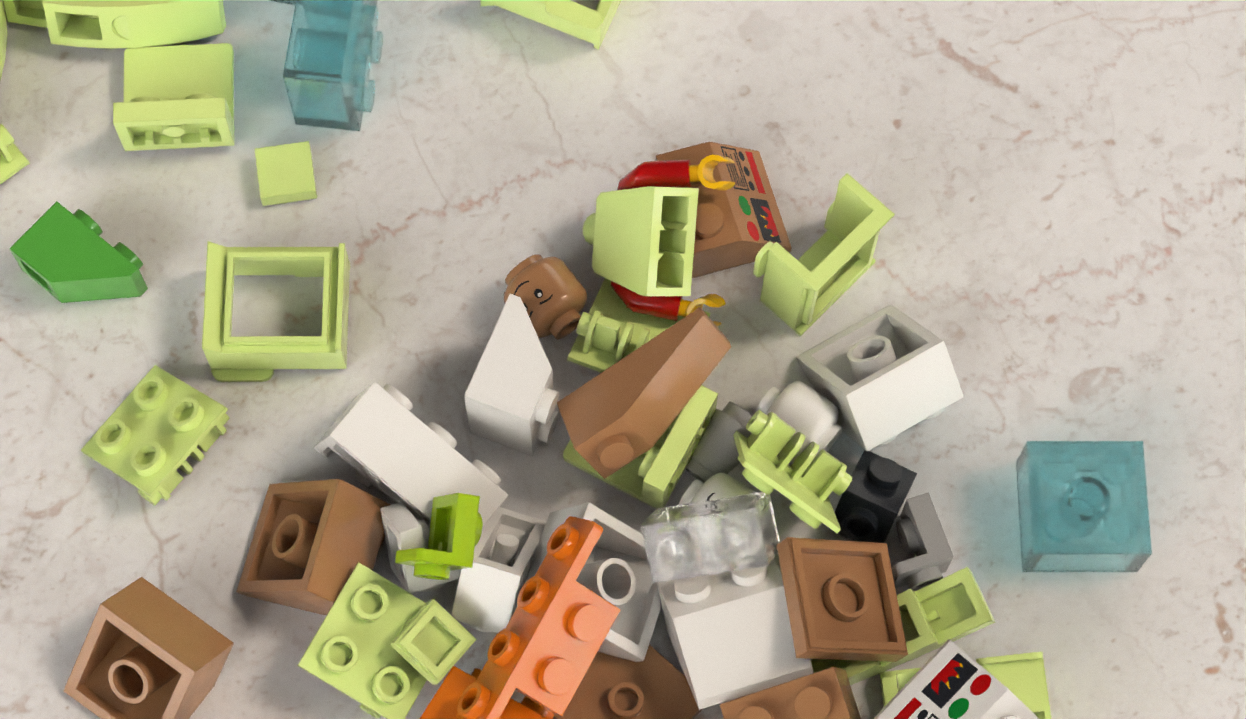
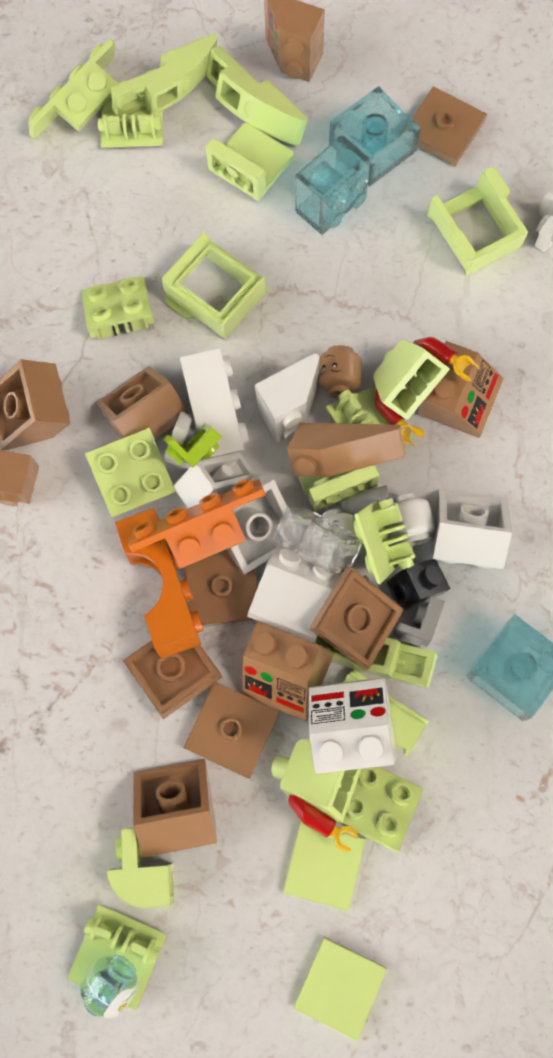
camera: 45 degrees right, 5 degrees up
(74, 262) = (143, 199): bright green slope -> none
(285, 173) = (271, 230): yellowish green tile -> none
(433, 641) = (153, 490): yellowish green tile -> none
(809, 286) = (490, 458): yellowish green piece -> none

